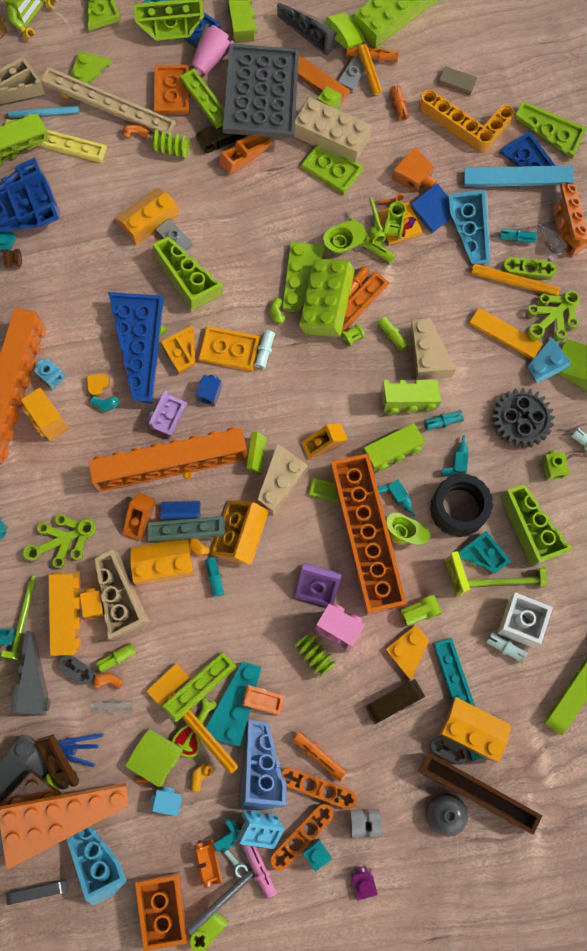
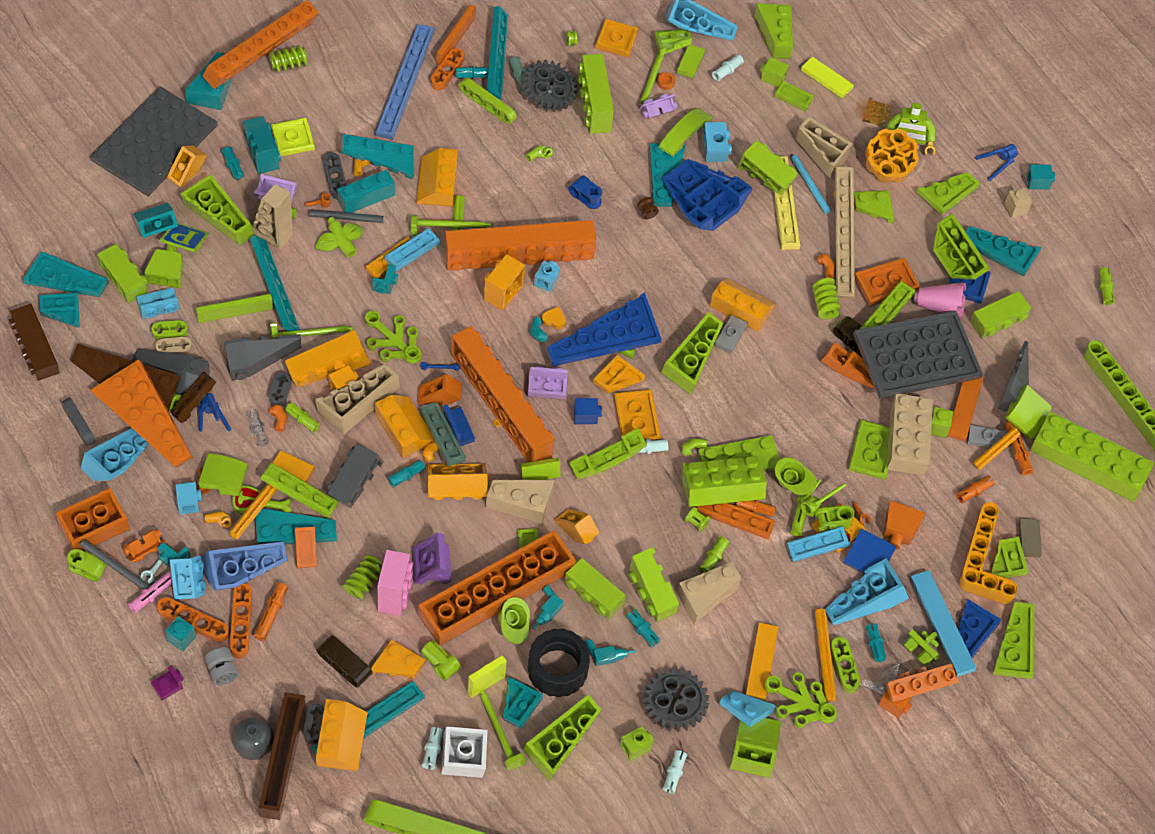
camera: 65 degrees right, 15 degrees down
(46, 32) = (901, 152): none -> light orange connector
(102, 521) = (424, 366): none -> blue hinge
(203, 628) = (353, 475): none -> dark grey wedge
(263, 386) = (610, 456): none -> lime slope
(411, 245) = (818, 544): none -> medium azure tile
(474, 103) = (1010, 559): none -> lime wing
(542, 200) = (928, 652): none -> lime hips

